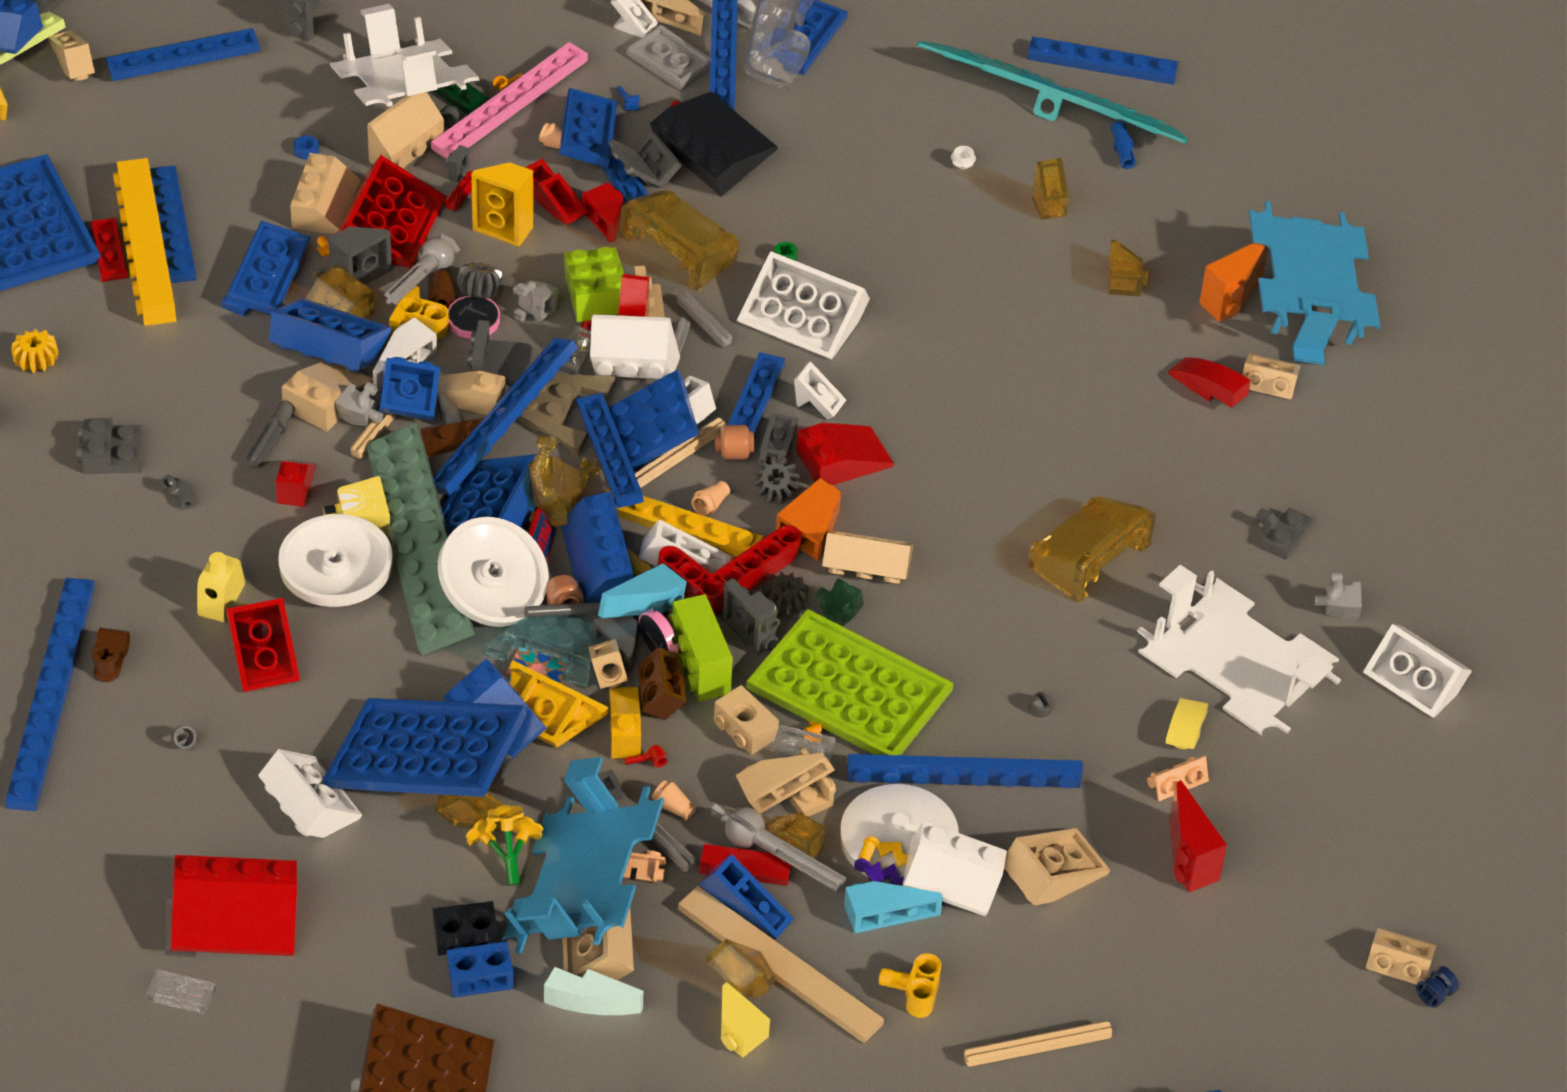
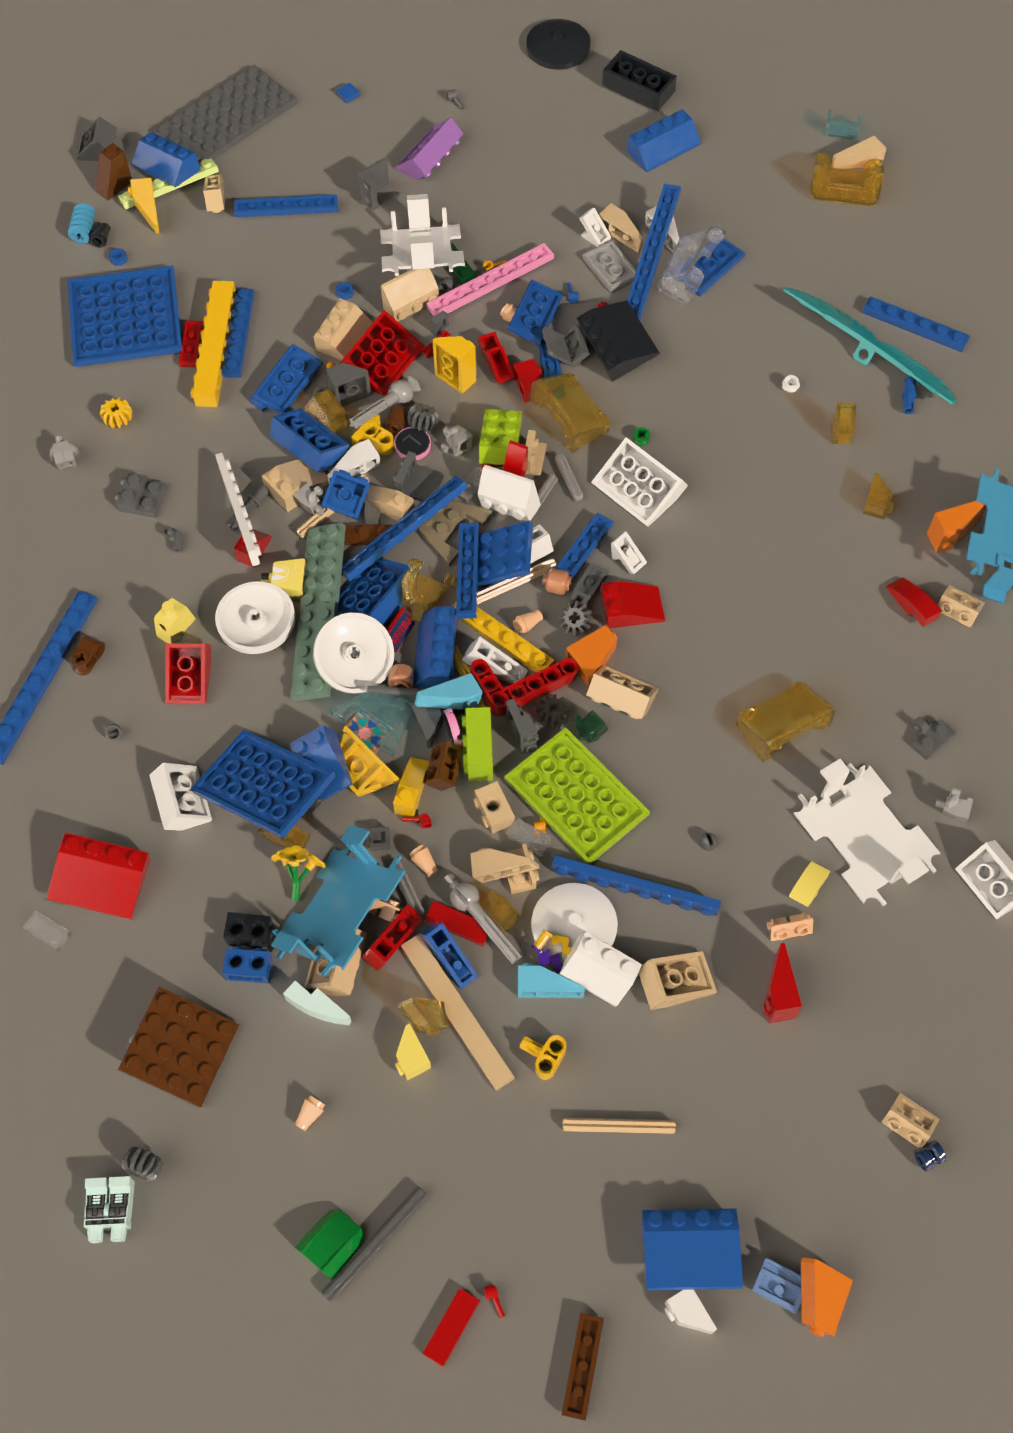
camera: 20 degrees right, 15 degrees up
(265, 431) = (240, 512): none -> white plate
(604, 654) = (411, 741): tan brick -> none
(665, 895) = (392, 937): none -> red slope

